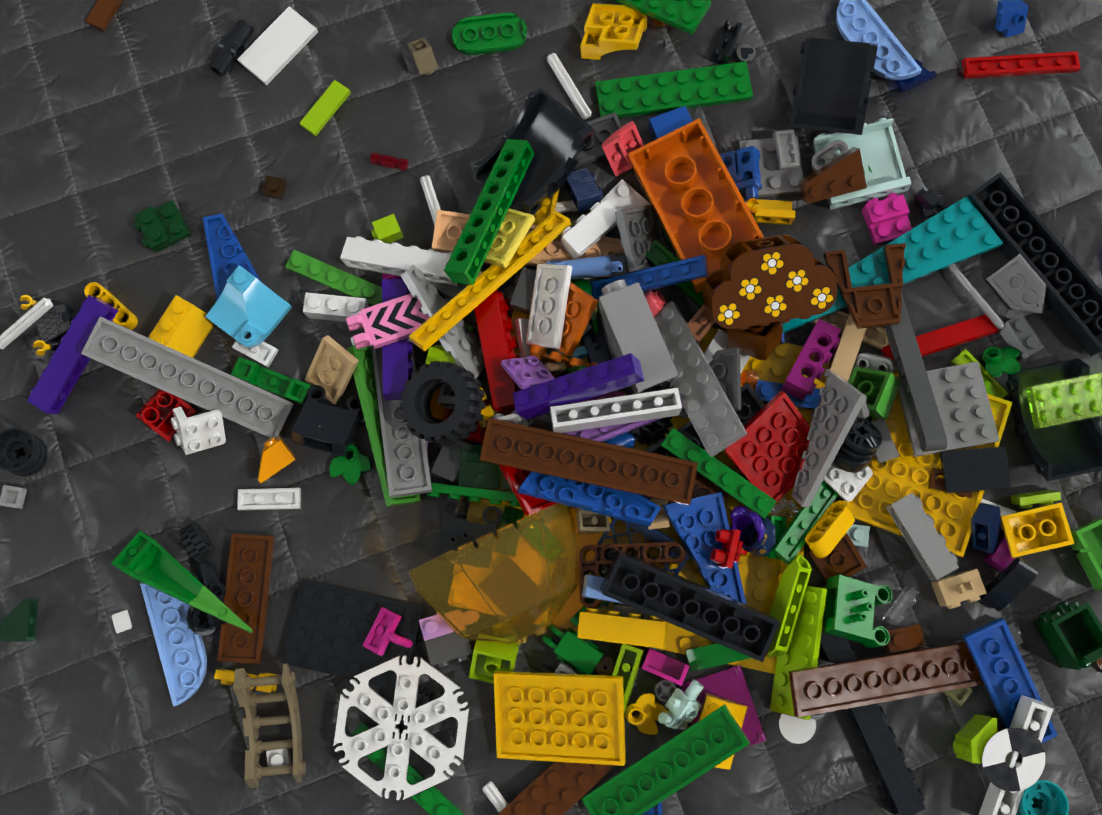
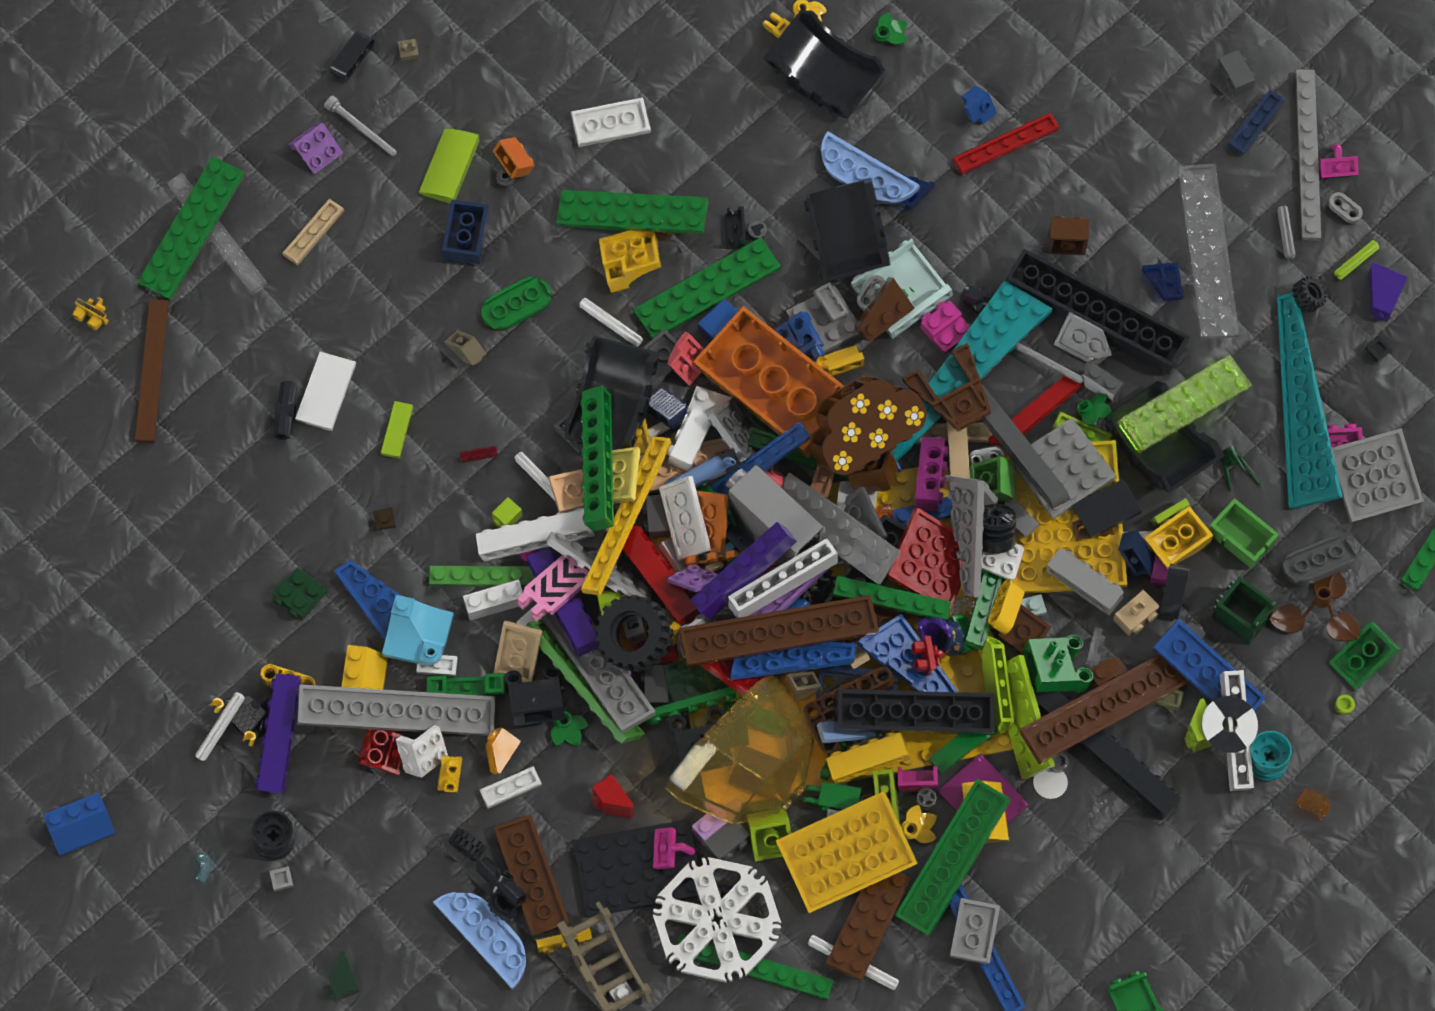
camera: 25 degrees left, 10 degrees down
(121, 621) = (429, 943): white sticker -> none
(153, 566) = (438, 880): green plate -> none
(213, 463) = (449, 774): none -> yellow hips
(355, 556) = (612, 799): none -> red slope
(682, 707) = (945, 802): light aqua piece -> none
(1048, 177) = (1068, 235): none -> reddish brown brick

